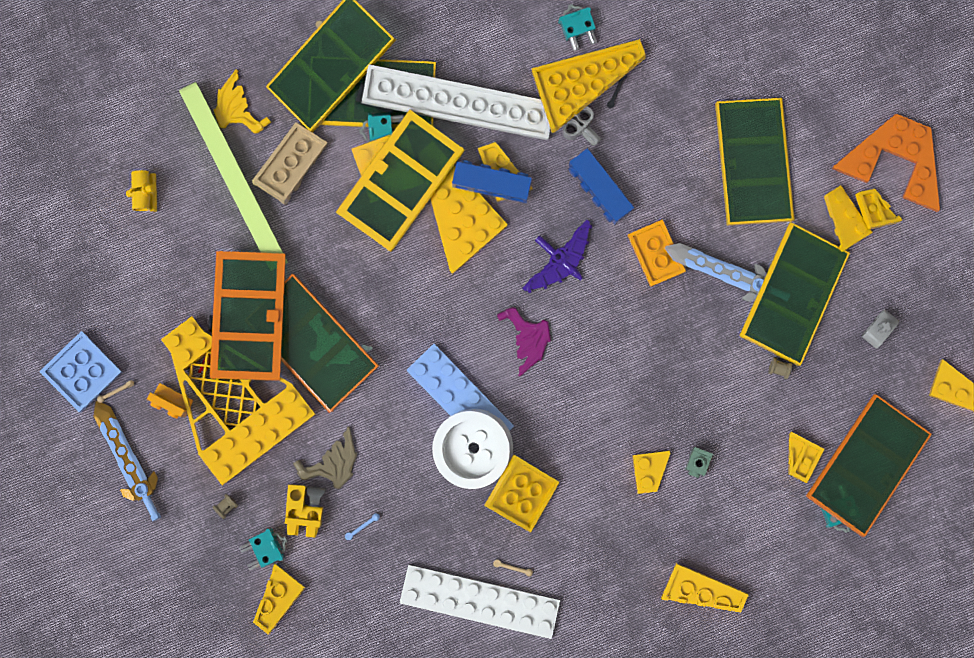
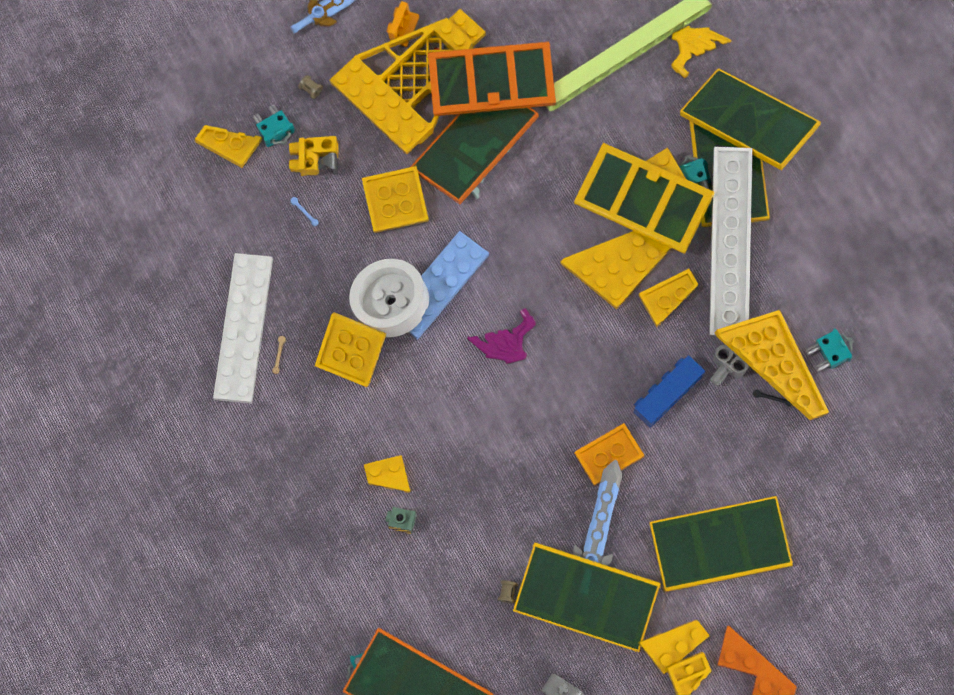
camera: 90 degrees right, 10 degrees down
(289, 163) = (645, 97): tan hinge -> none
(336, 465) = (353, 182): dark tan animal -> none
(364, 431) = (395, 199): none -> yellow plate
(491, 182) = (655, 283): blue brick -> none
(562, 261) = (588, 364): dark purple bar -> none
(696, 588) = (275, 532): yellow wing -> none
(802, 457) = (418, 625): yellow wing -> none

